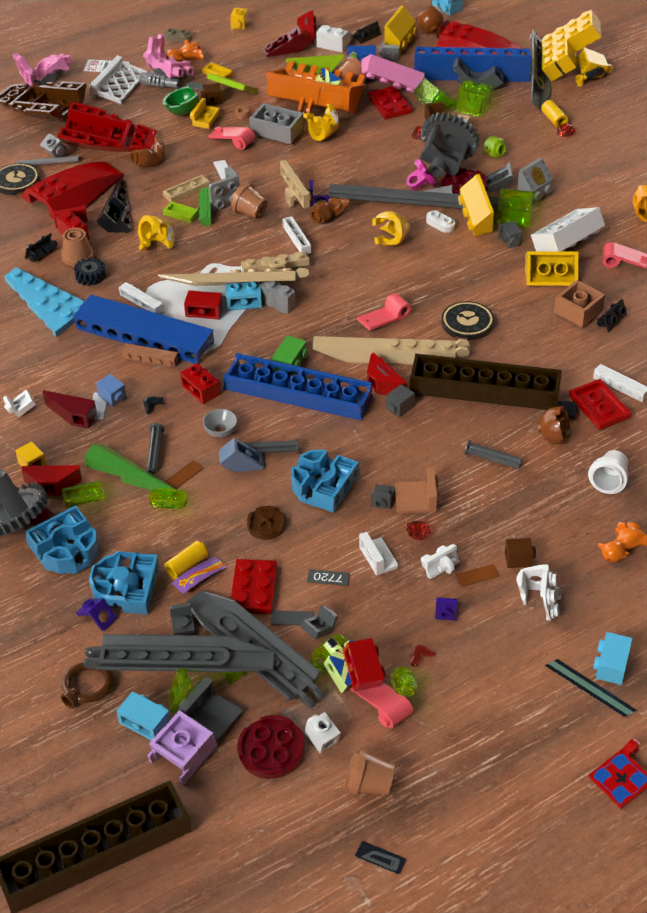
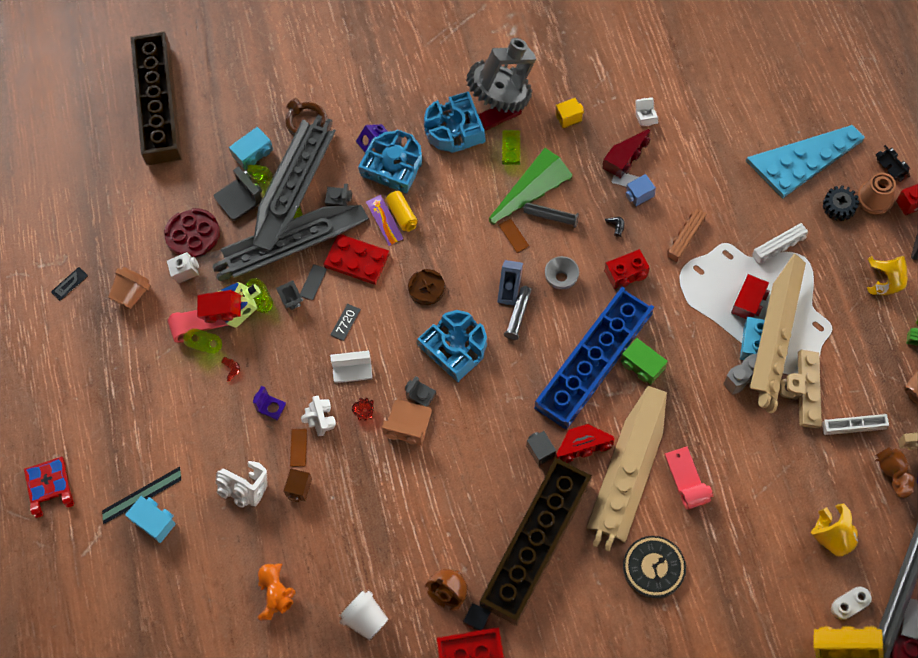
camera: 110 degrees right, 20 degrees up
(52, 477) = (537, 123): red slope -> none
(143, 326) = (726, 234): blue tile -> none
(167, 498) = (481, 213): clear neon green plate -> none
(183, 744) = (212, 168): lavender piece -> none
(492, 455) = (436, 513): dark grey axle -> none

